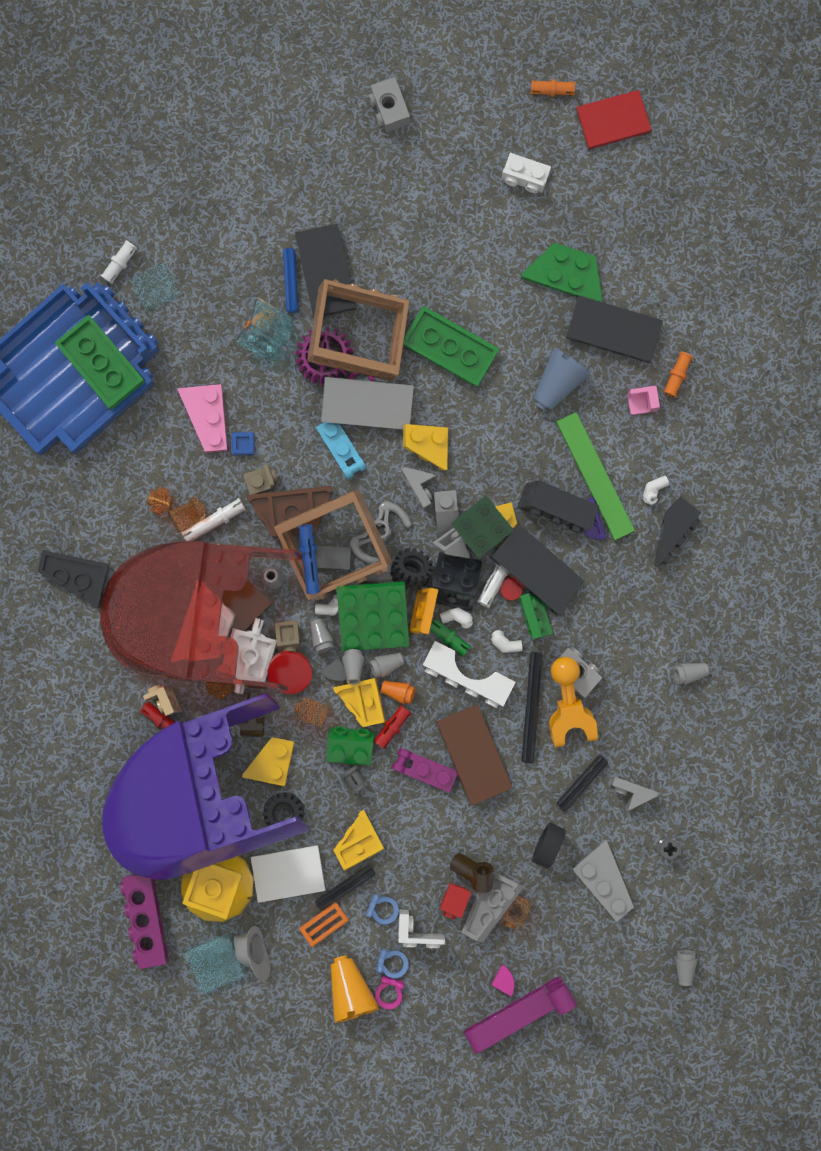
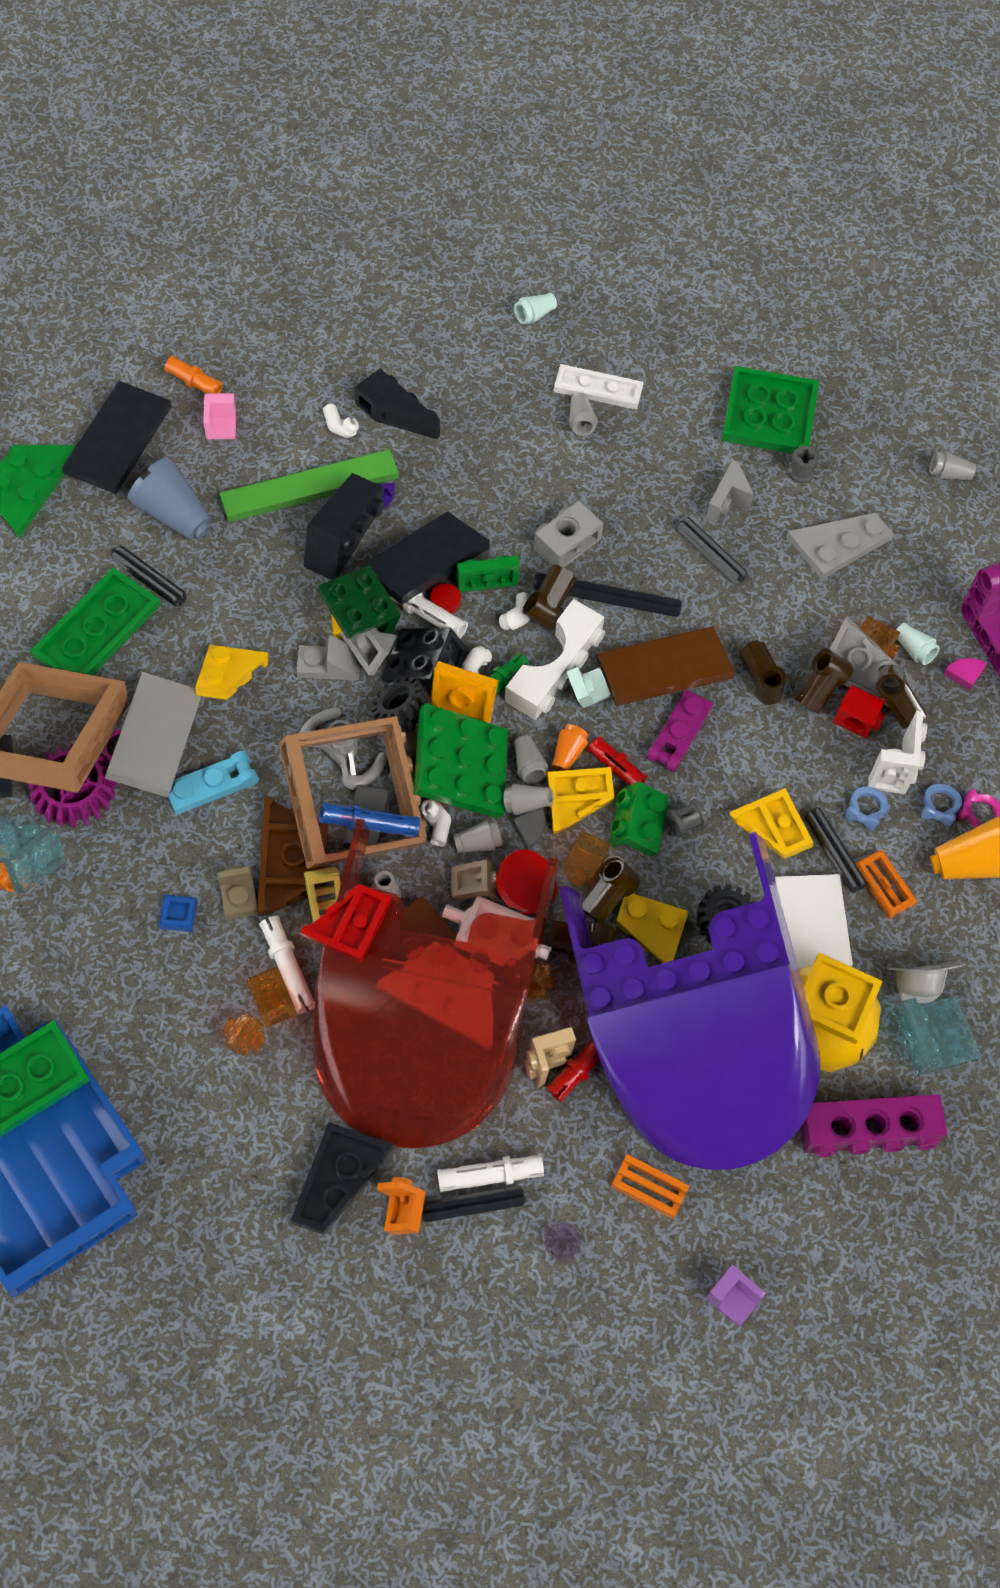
camera: 85 degrees left, 20 degrees down
(25, 834) = (735, 1295): none -> medium lavender panel
(50, 722) = (562, 1242): none -> clear purple tile
(58, 619) = (404, 1206): none -> orange bracket
(68, 663) = (473, 1203): none -> black axle
(83, 793) = (656, 1174): none -> orange tile
(86, 665) = (499, 1171): none -> white pin
(207, 415) = (123, 957): bright pink wing -> none
(216, 556) = (350, 923): none -> red wing
(268, 533) = (321, 876): none -> light yellow slope
(290, 730) = (615, 881): none -> dark brown piece
(416, 480) = (278, 692): light grey slope -> none
(447, 699) = (589, 686): none -> light aqua bracket
(467, 926) = (901, 698): none -> dark brown piece
(482, 826) = (763, 672): none -> dark brown piece
(499, 375) = (149, 576): none -> black axle
(510, 663) = (546, 603): none -> dark brown piece
(520, 942) = (917, 644): none -> light aqua cone
(548, 845) = (800, 579): black tyre -> none
(570, 709) = (619, 542): light orange piece -> none
(717, 820) = (770, 410): none -> green plate
(721, 683) = (599, 386): none -> white tile
(786, 623) = (534, 307): none -> light aqua cone

